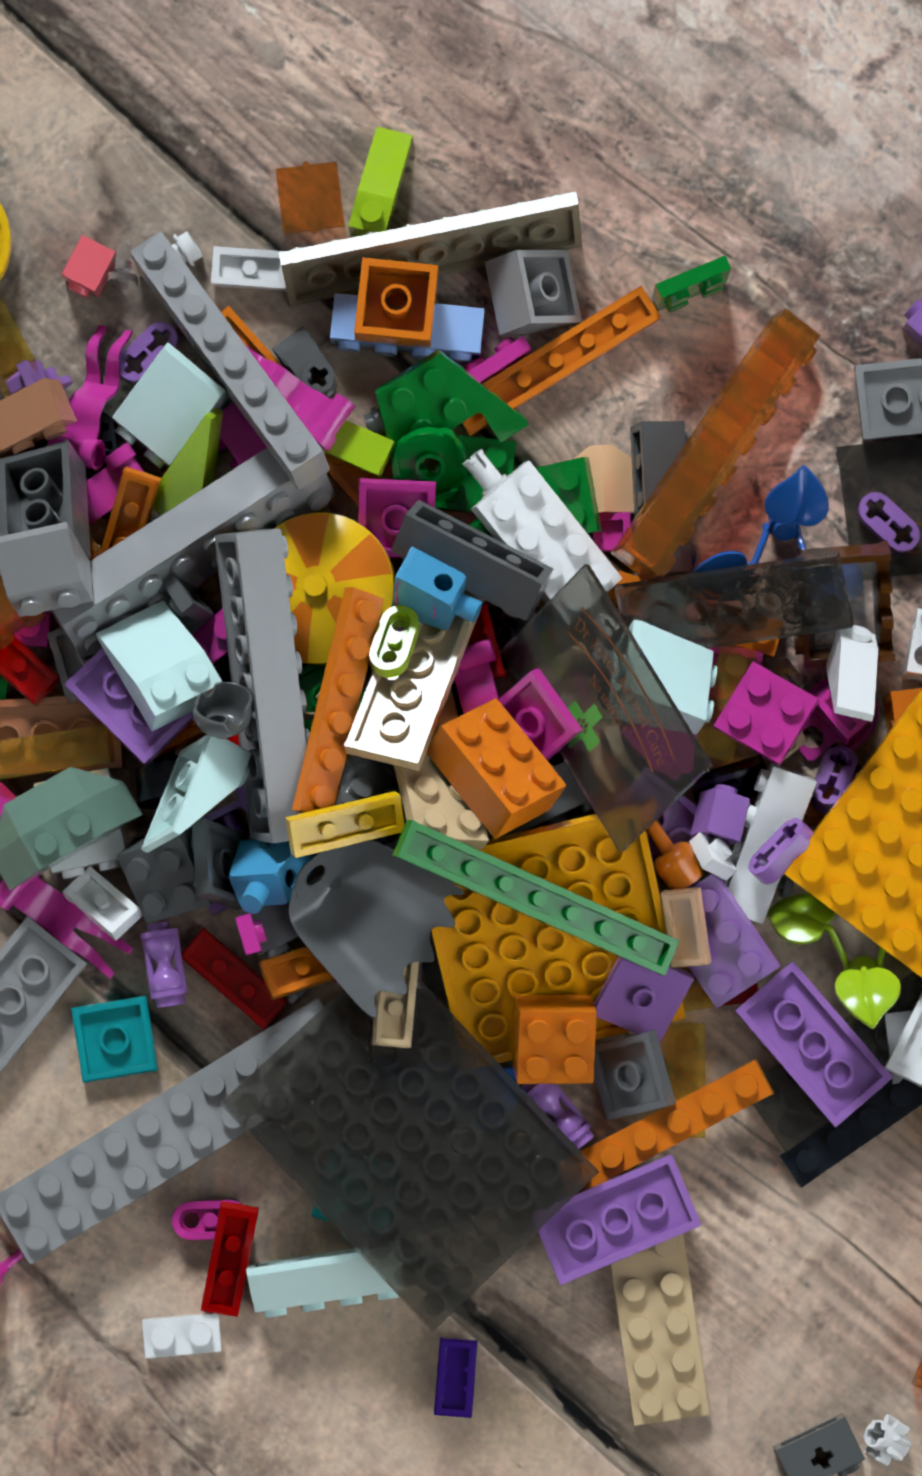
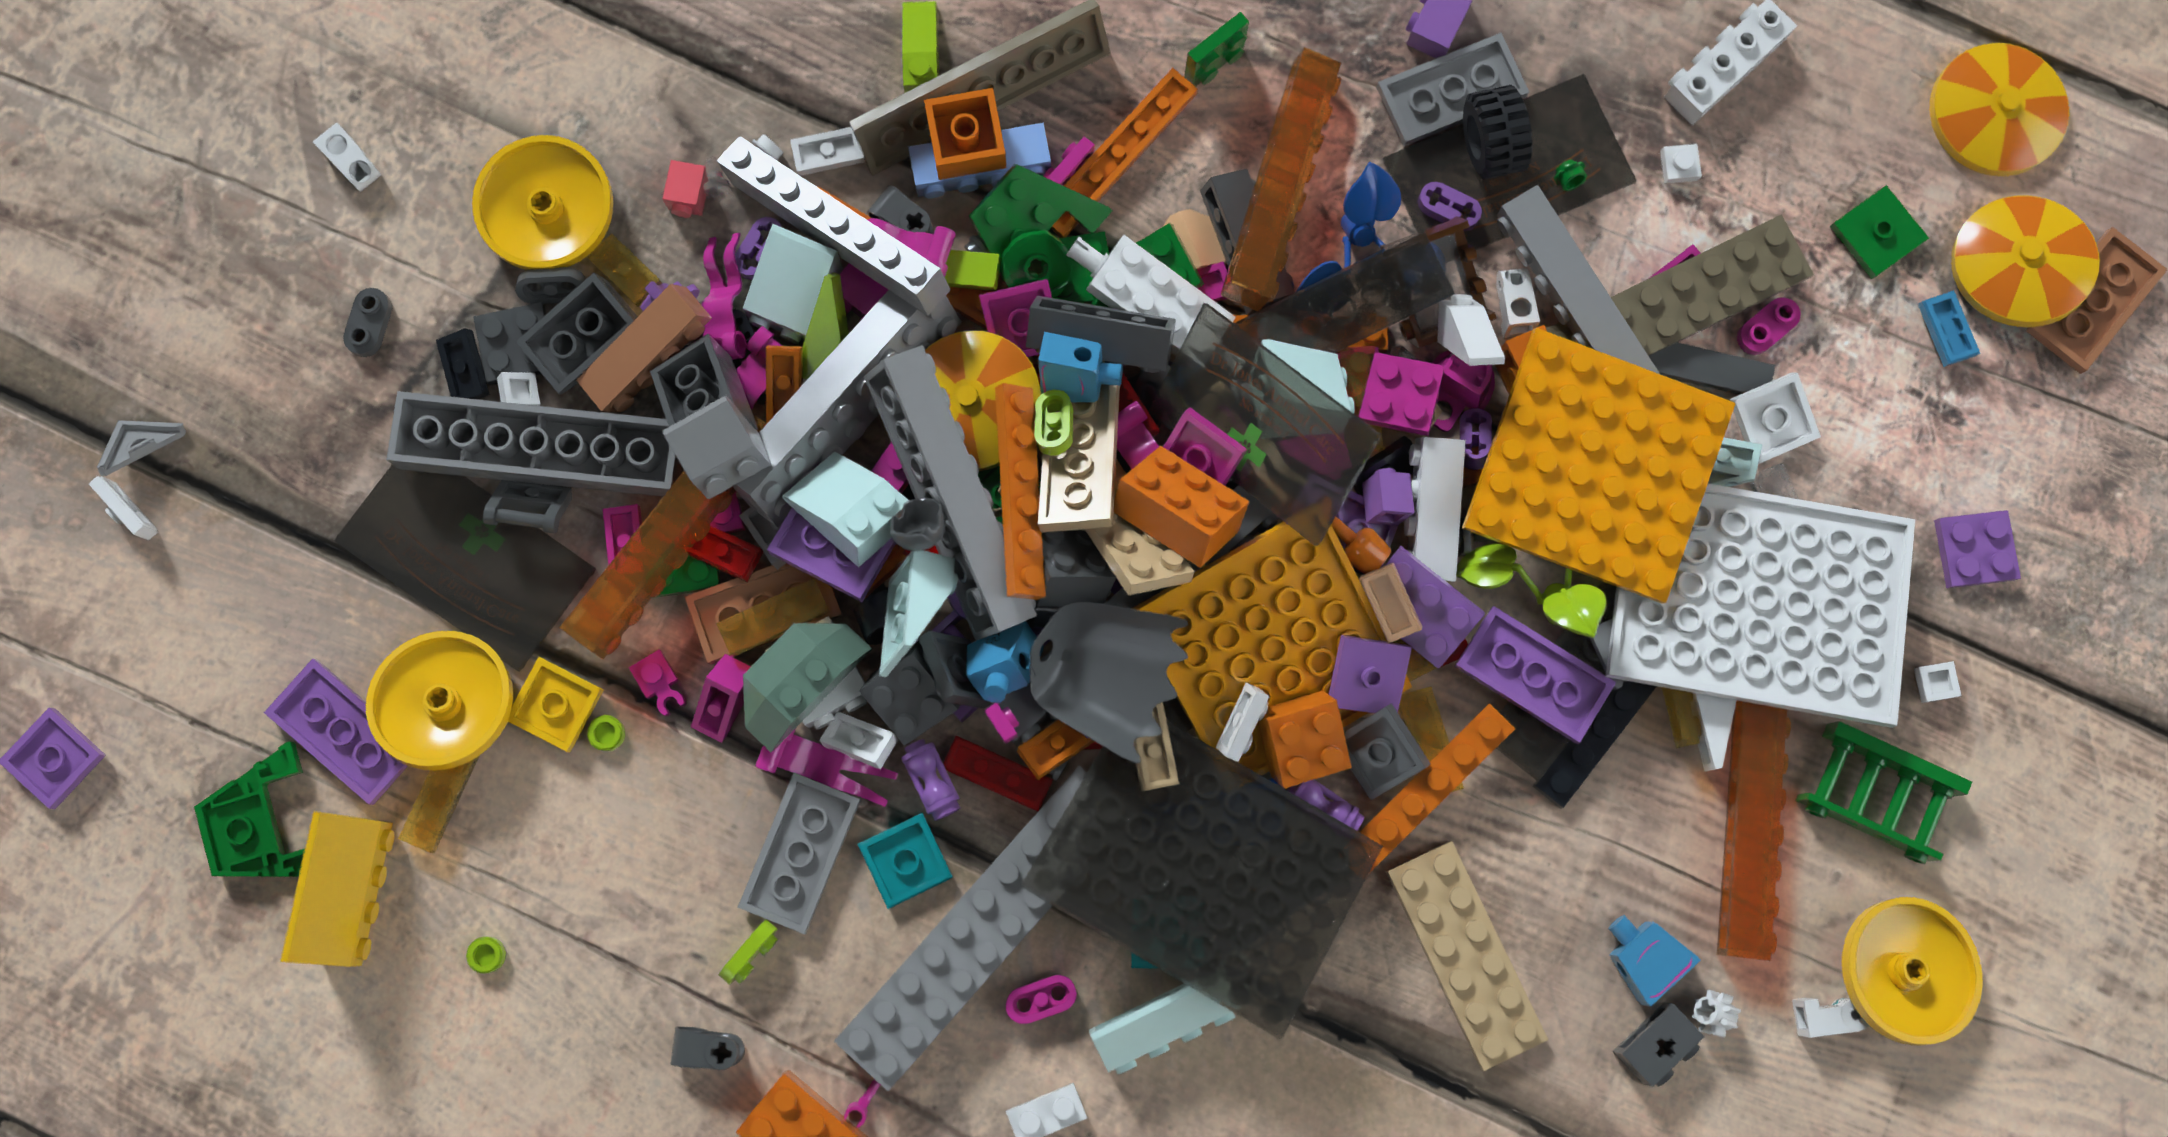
camera: 20 degrees left, 5 degrees down
(188, 604) = (857, 447): dark grey bracket -> none
(229, 1258) = (1070, 1029): red plate -> none
(309, 197) = (862, 78): clear orange piece -> none
(345, 824) = (1060, 594): yellow plate -> none
(455, 1377) = (1308, 1076): dark purple plate -> none
(488, 1013) = (1238, 731): none -> white plate
(533, 291) = (1079, 99): light grey slope -> none
(535, 897) = (1251, 609): green plate -> none
(619, 1219) = (1413, 885): medium lavender plate -> none
(713, 855) = (1395, 532): white plate -> none
(780, 851) = (1454, 509): medium lavender beam -> none
(838, 1365) = (1649, 959): none -> dark azure torso

